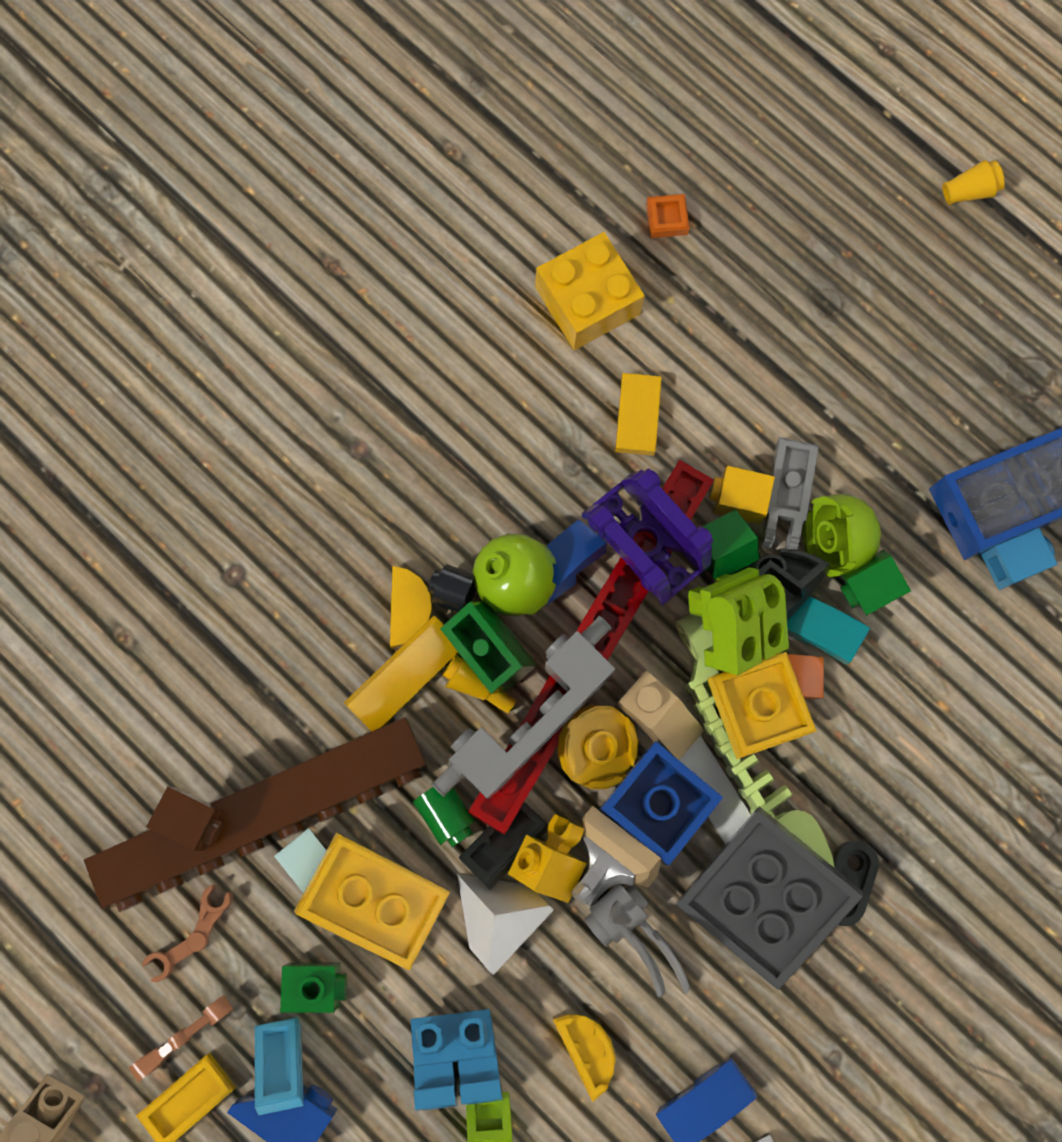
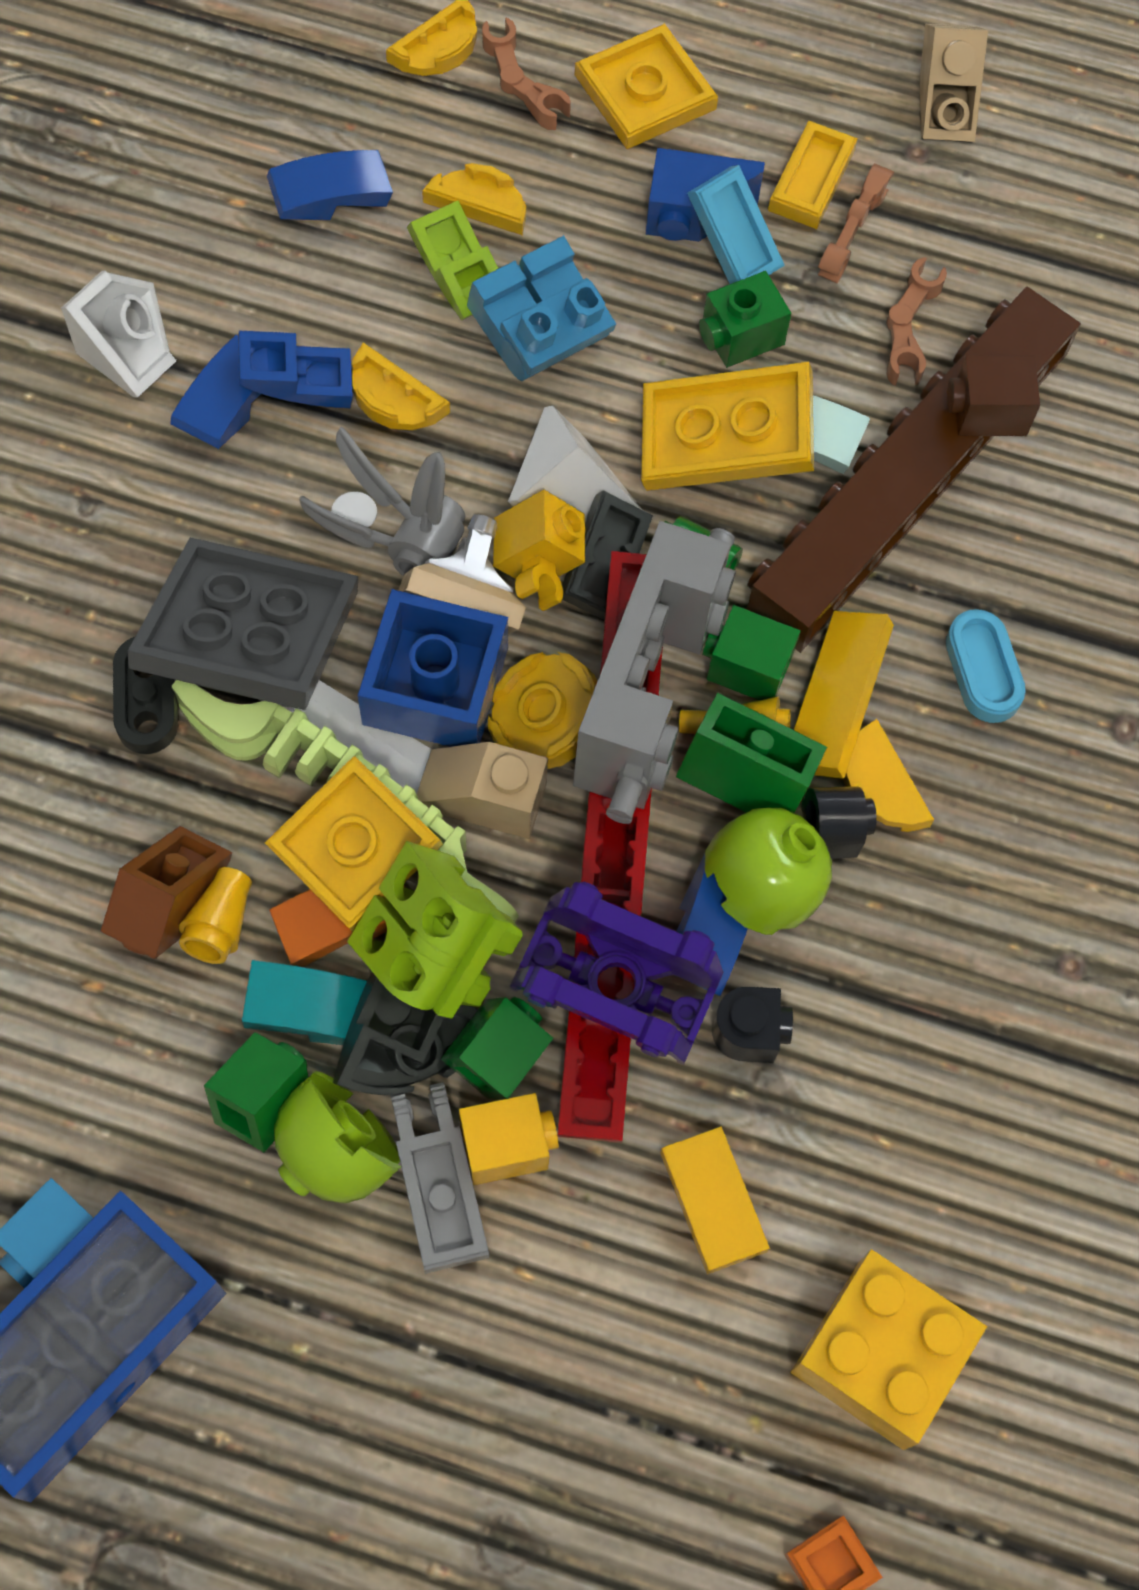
camera: 155 degrees right, 10 degrees down
(297, 653) = (985, 666): none -> medium azure tile
(446, 718) = (751, 654): none -> green brick
(568, 495) = (752, 1024): none -> black plate
(654, 1096) = (299, 374): none -> blue slope
(661, 961) = (356, 507): none -> white sticker
(857, 707) = (216, 919): none -> yellow cone
(883, 738) = (160, 890): none -> dark orange slope

